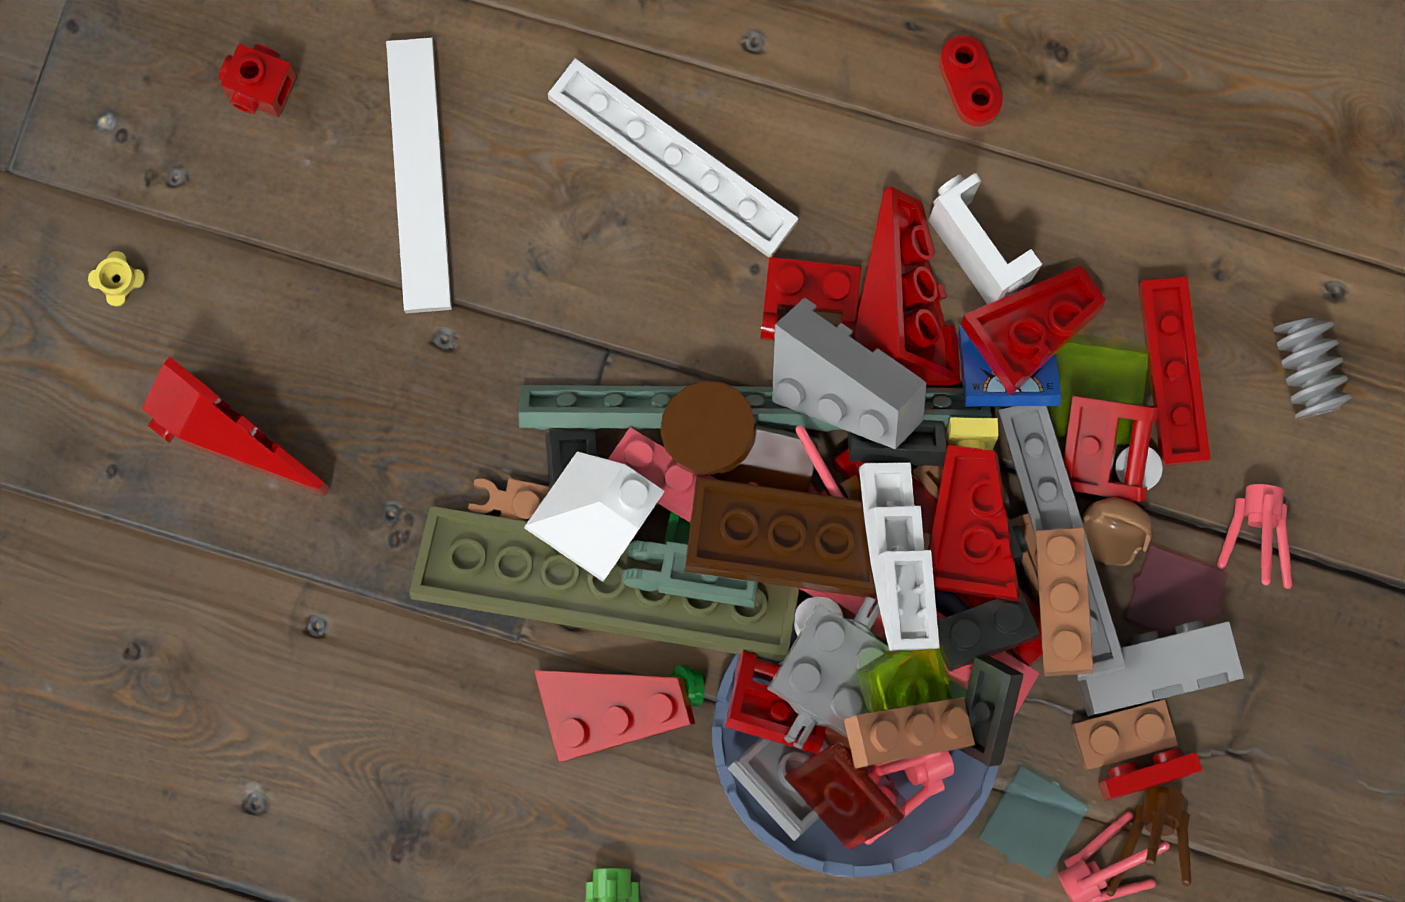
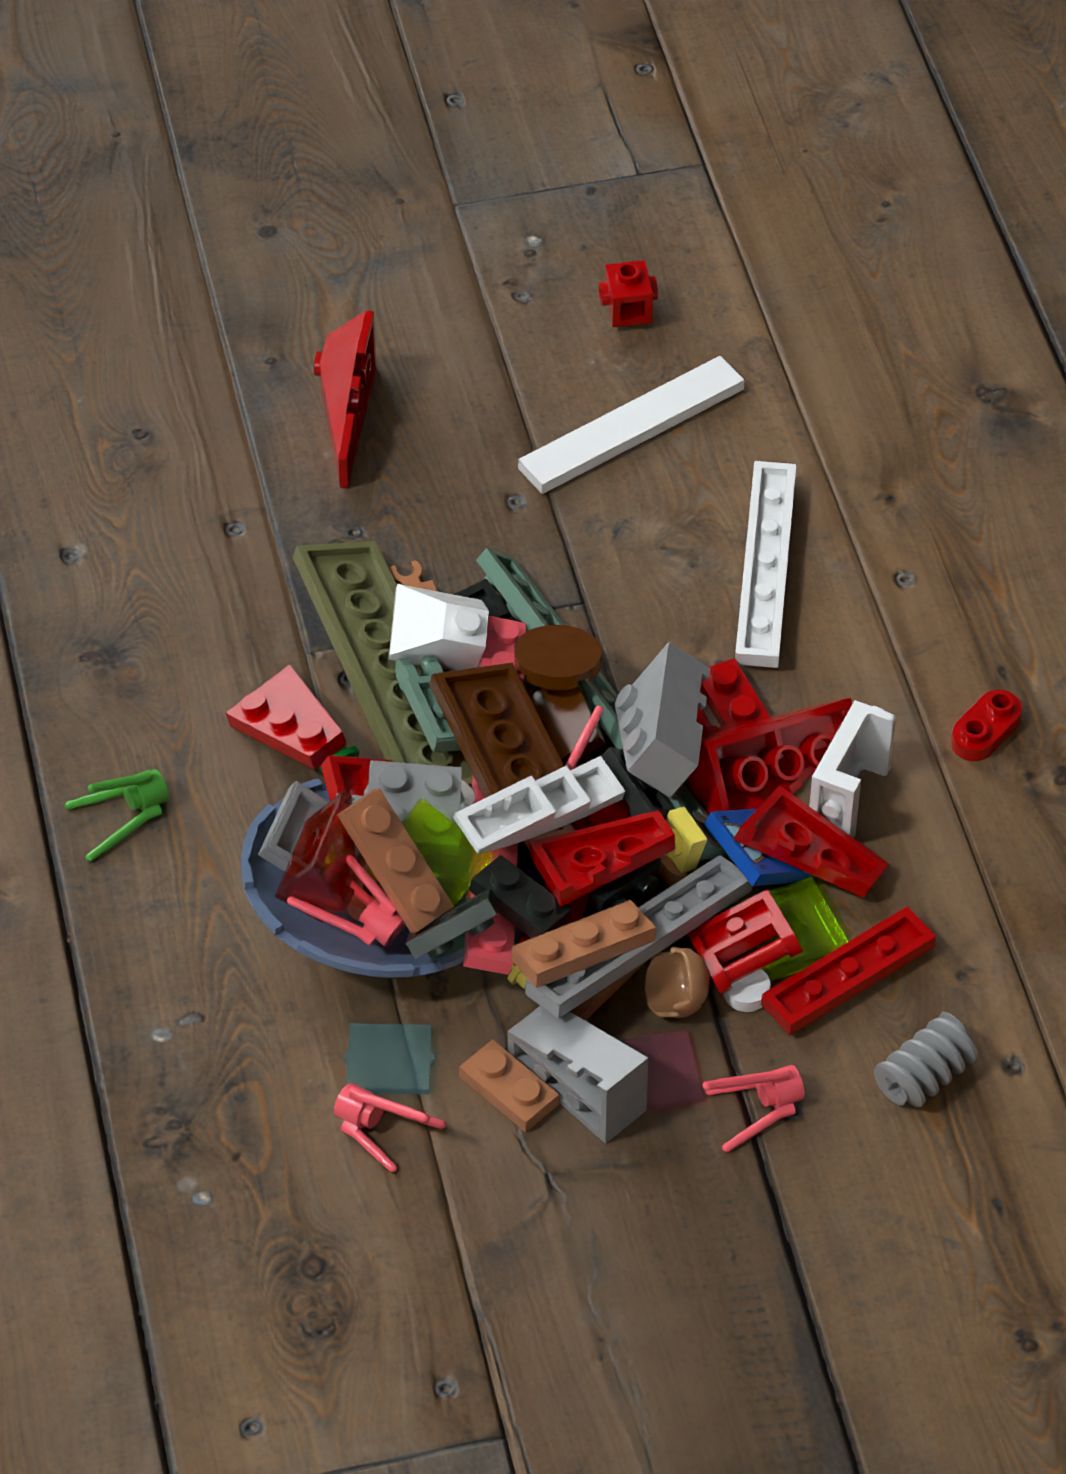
camera: 65 degrees right, 30 degrees down
(105, 271) = (418, 291): light yellow plate -> none
(1160, 815) = (457, 1134): reddish brown plant -> none
(1167, 768) = (483, 1111): red plate -> none

